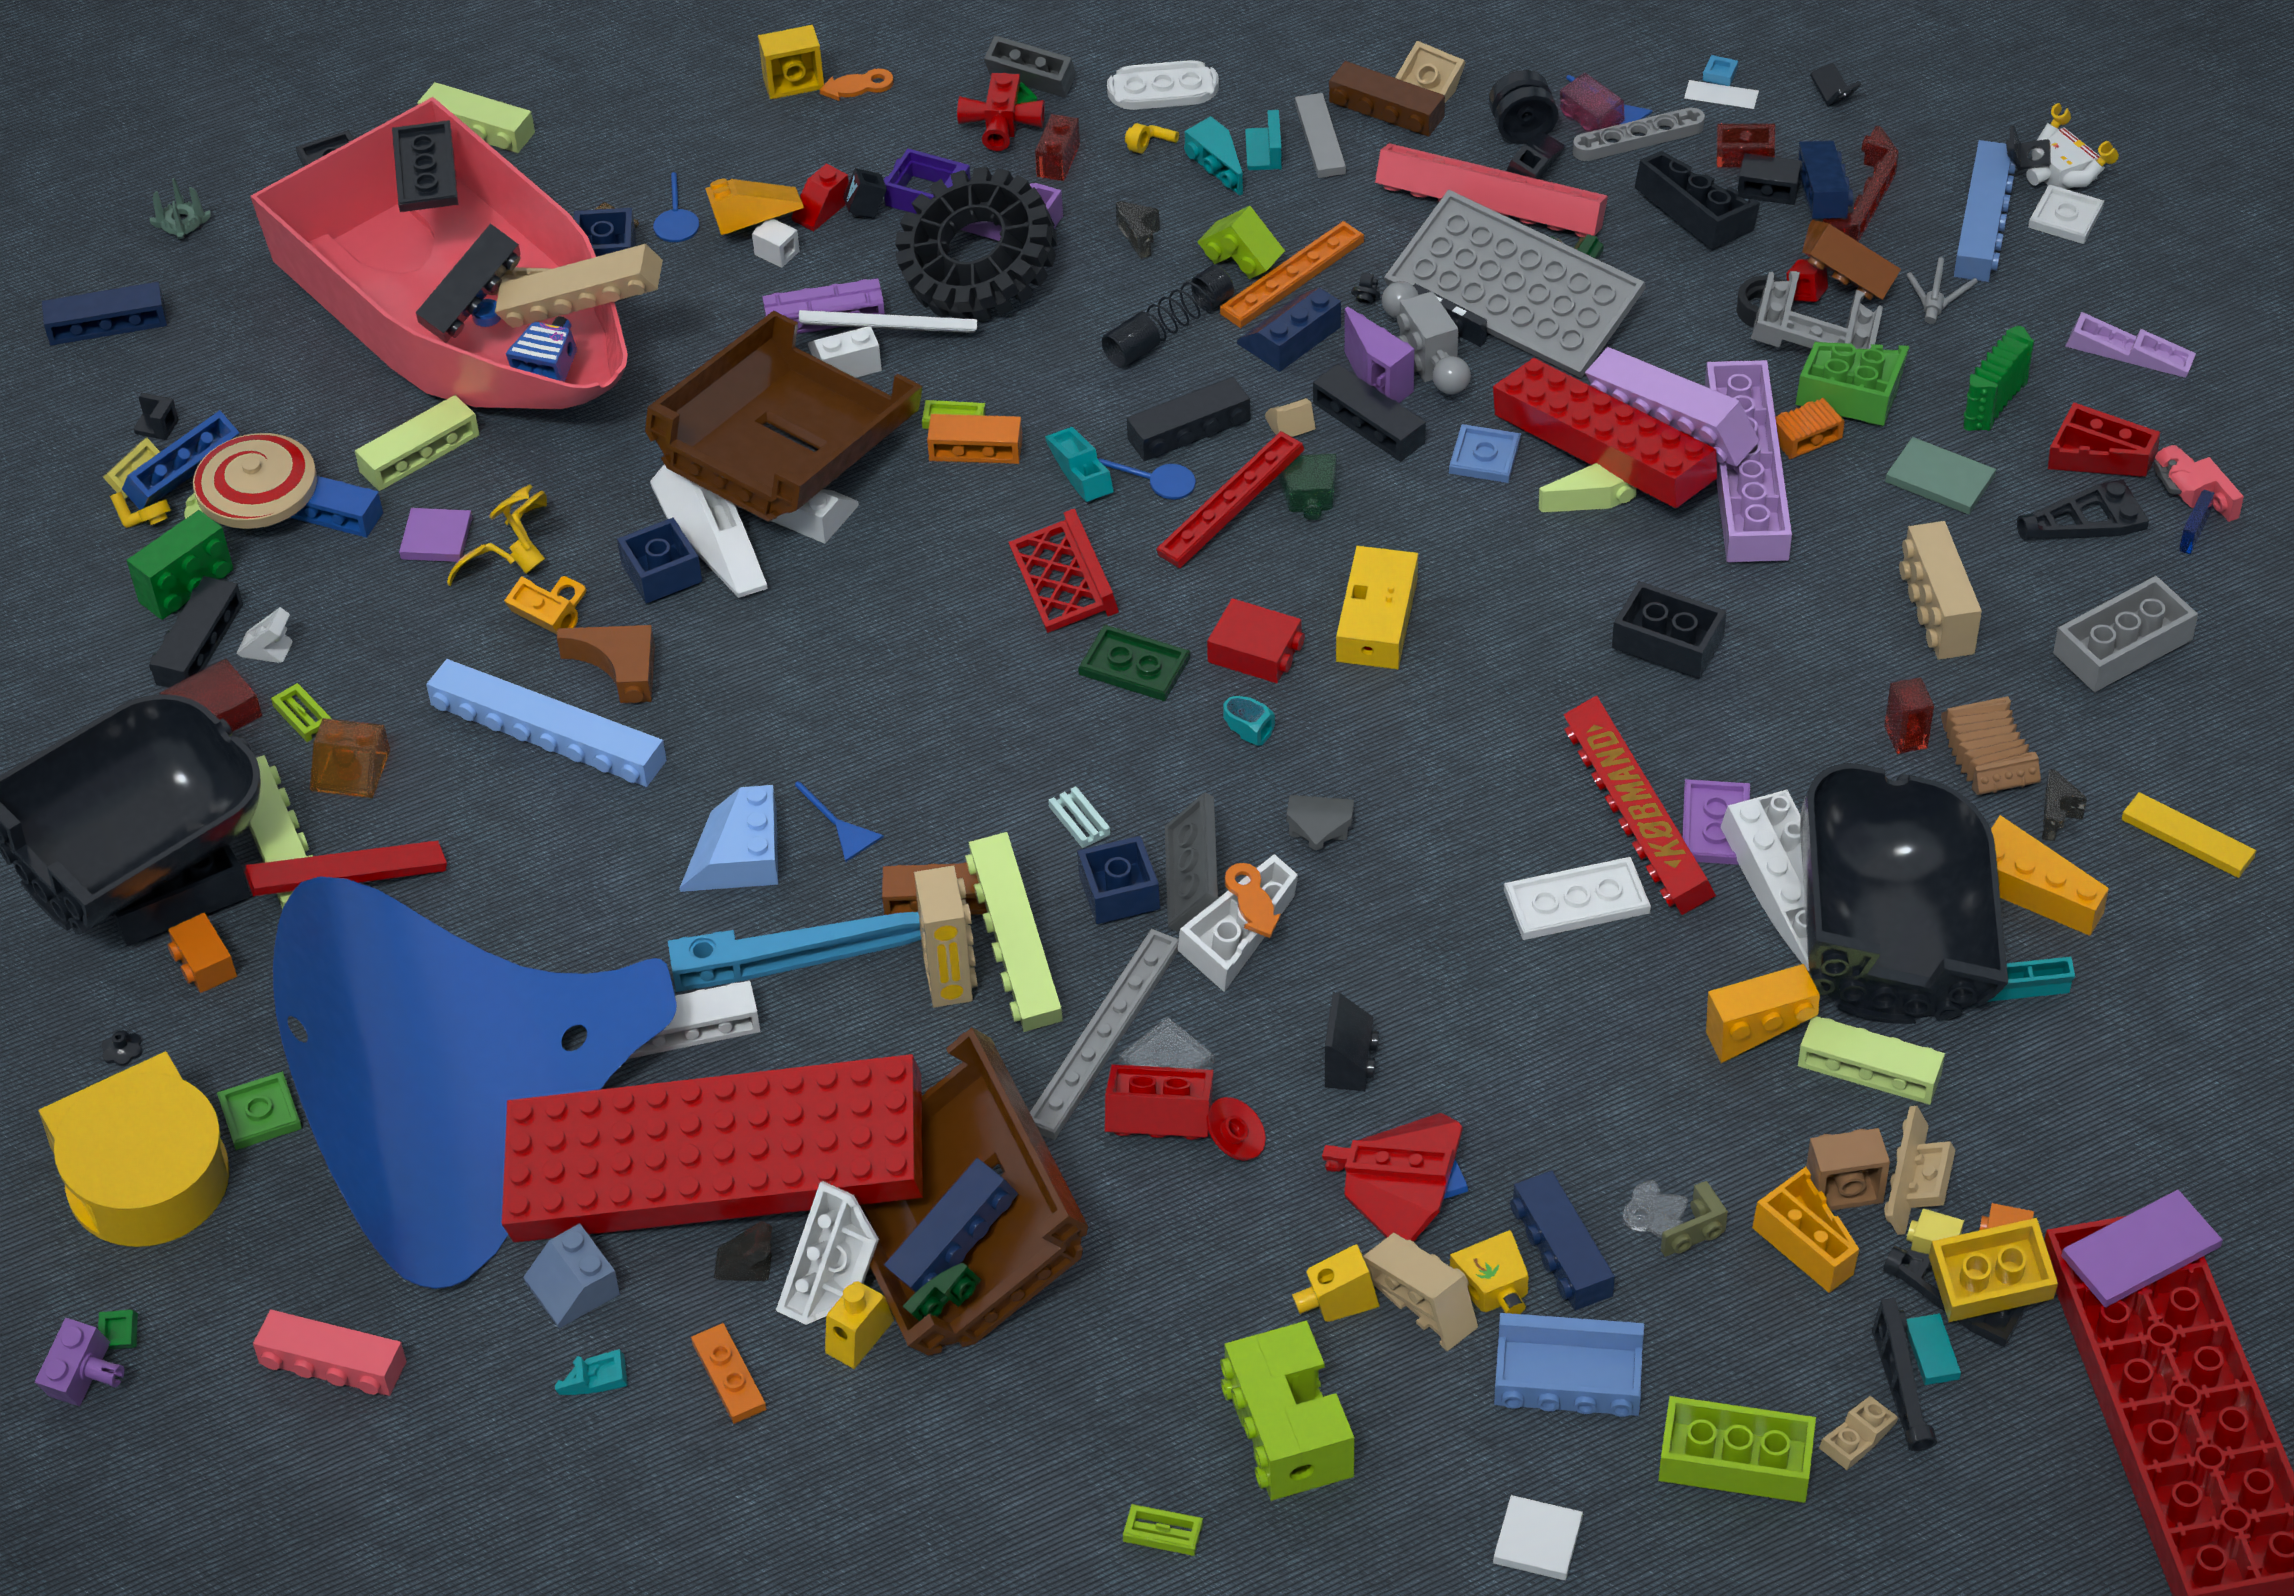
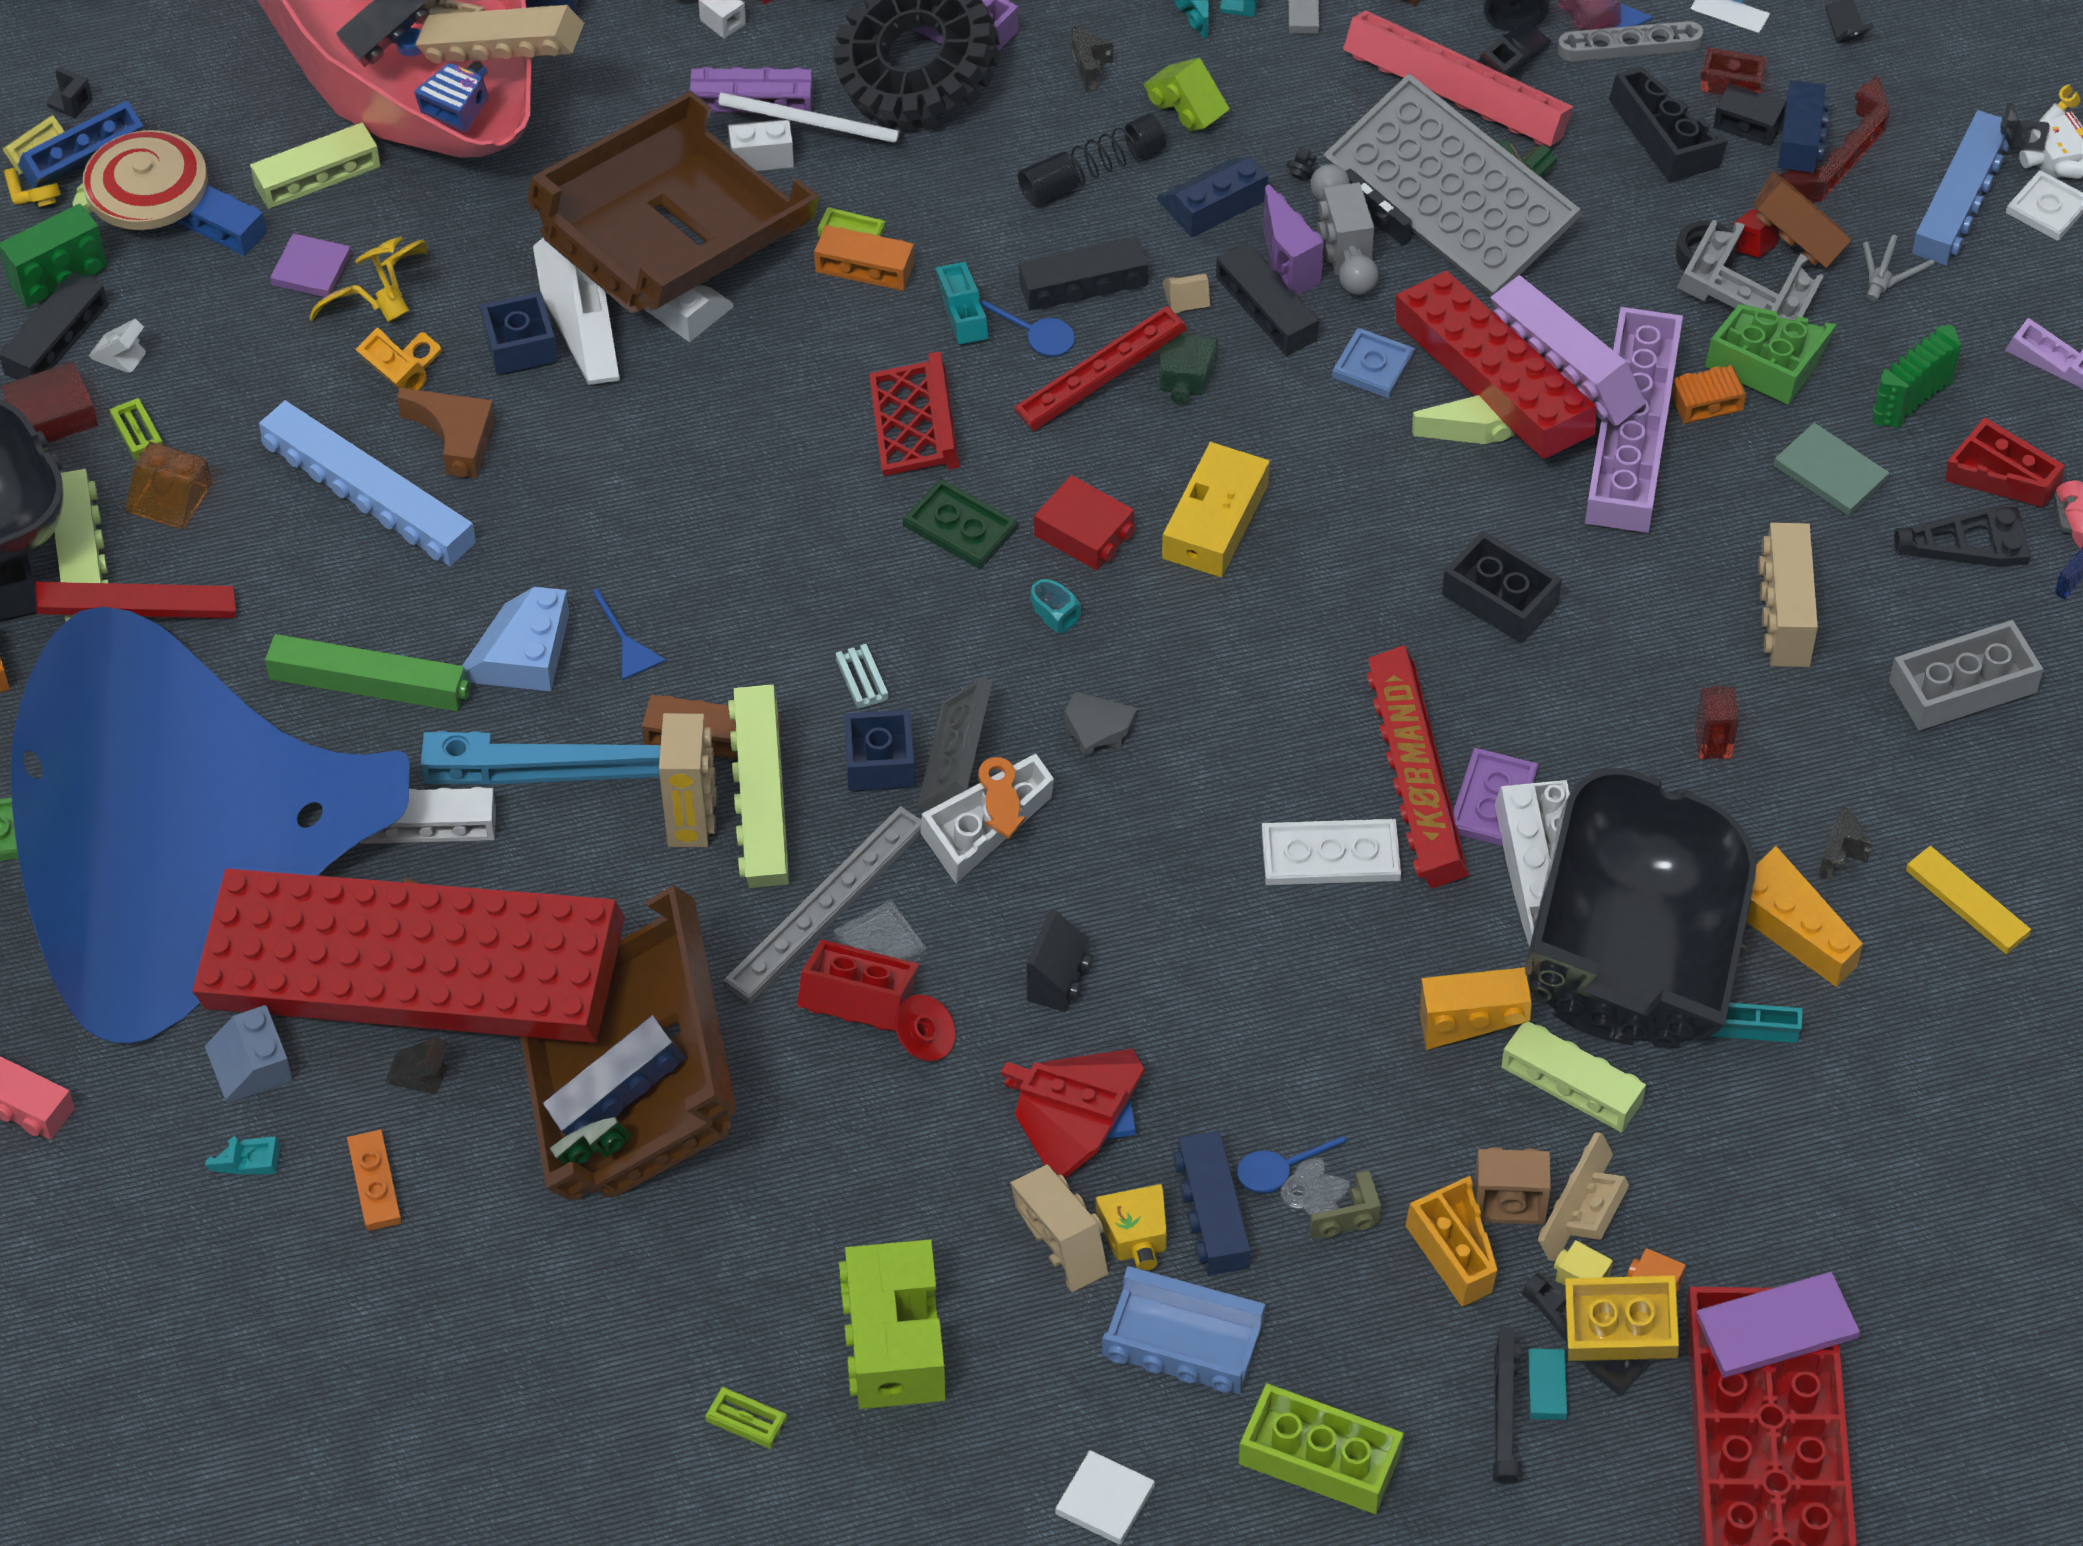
camera: 10 degrees right, 5 degrees up
(593, 897) = (367, 672): none -> bright green brick
(829, 1256) = (493, 1085): white wedge -> none
(856, 1323) = (504, 1155): yellow torso -> none
(1291, 274) = (1232, 134): orange tile -> none
(1338, 1286) = (979, 1208): yellow torso -> none
(1606, 1202) = (1269, 1170): none -> blue piece
(1859, 1433) = (1449, 1455): tan slope -> none
(1990, 746) = (1792, 769): medium nougat piece -> none

